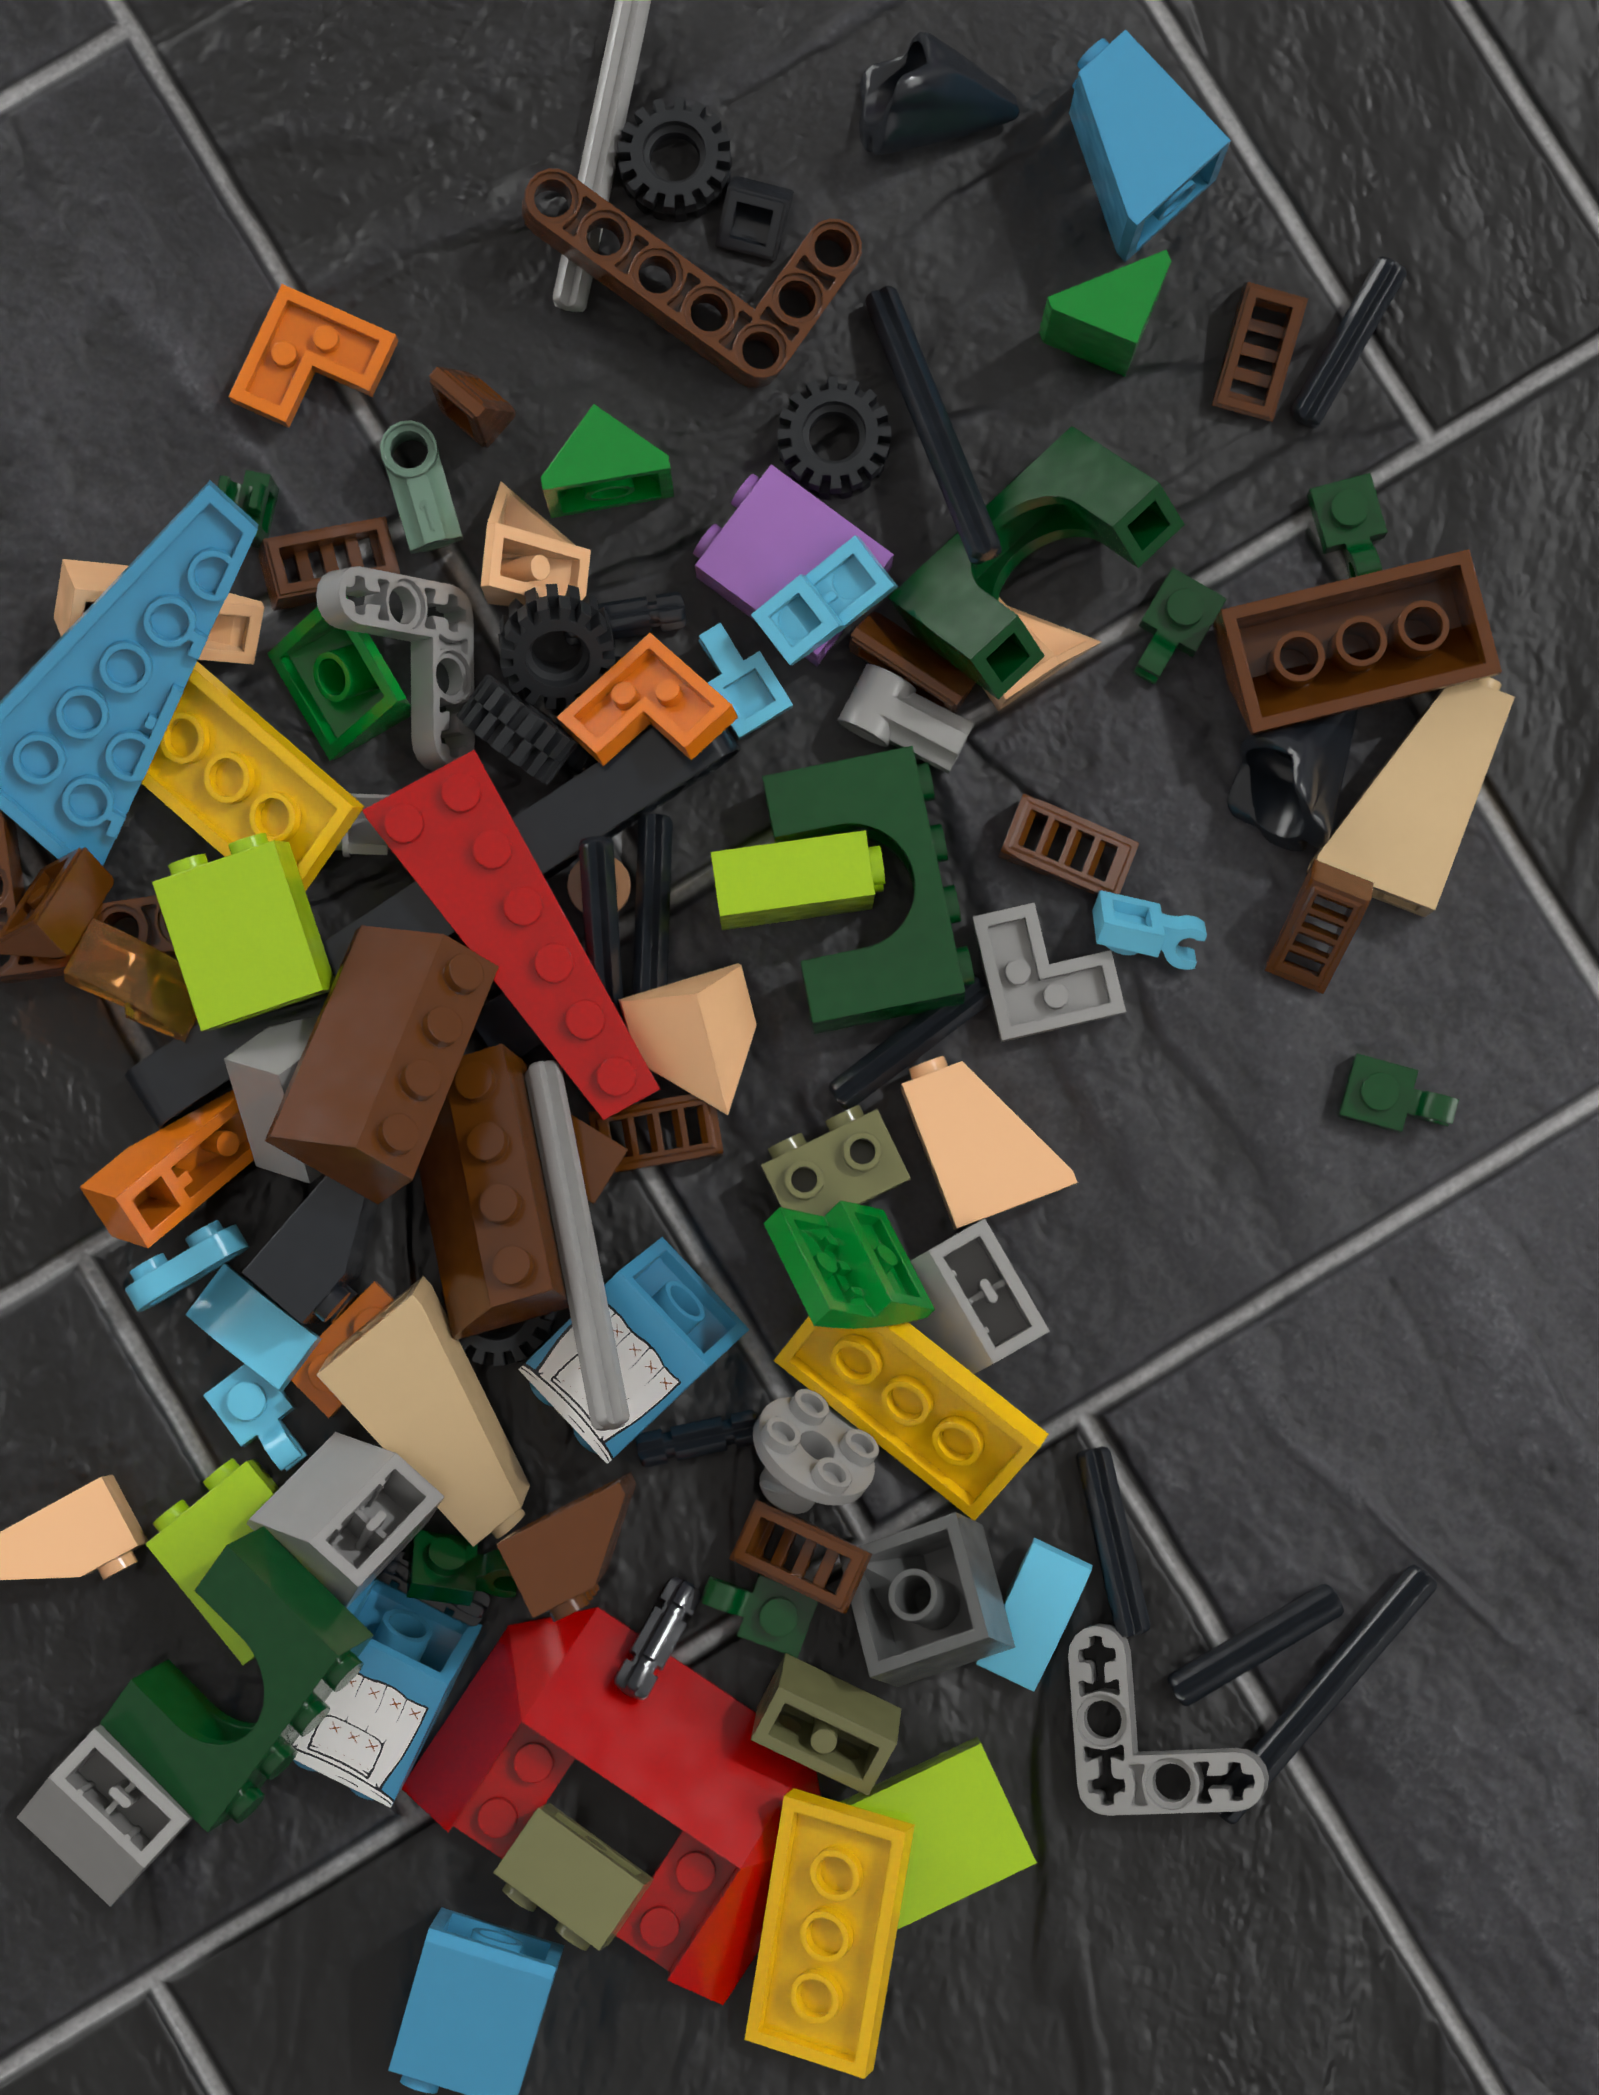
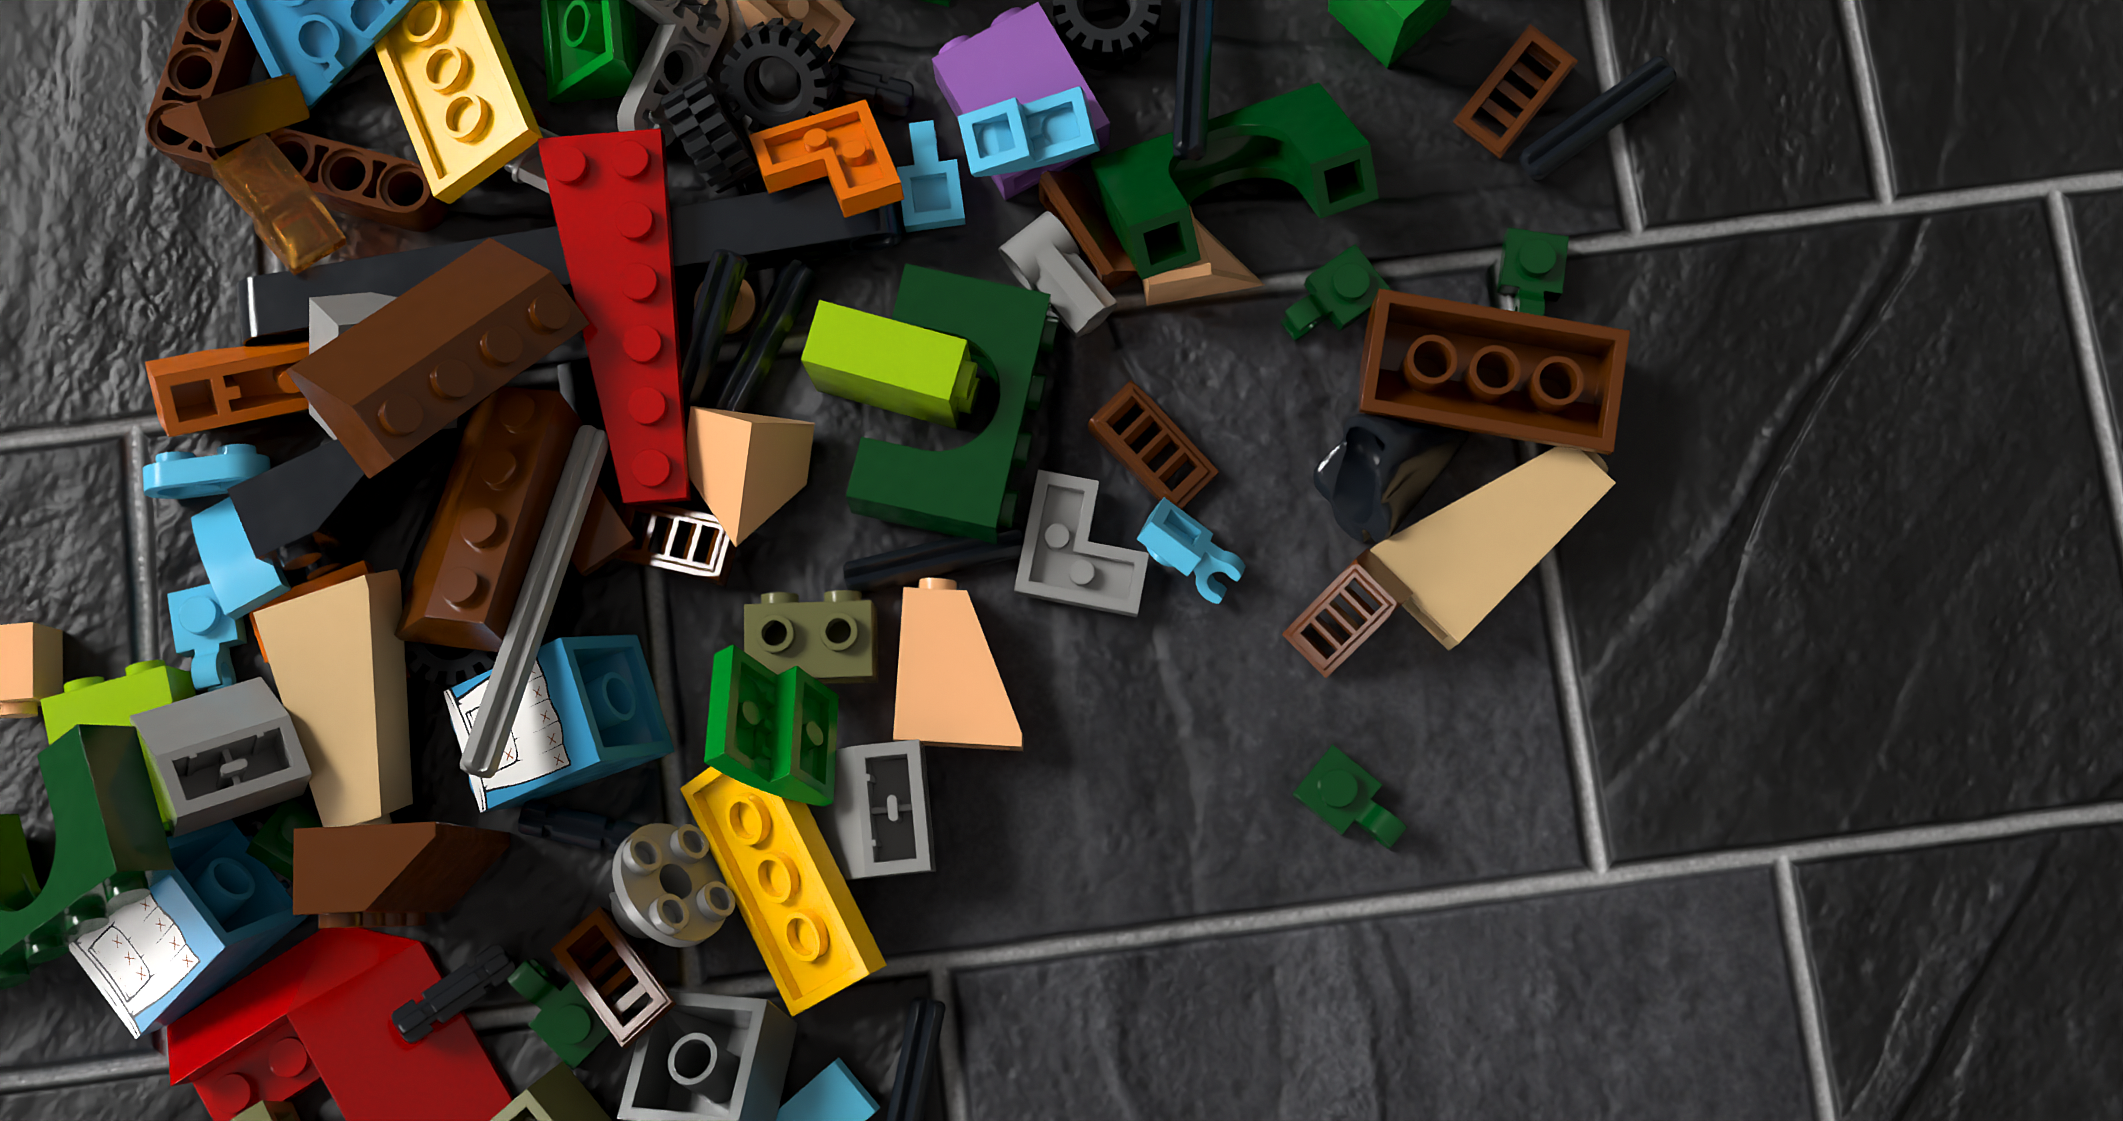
camera: 30 degrees right, 5 degrees down
(243, 932) = (381, 197): lime brick -> none

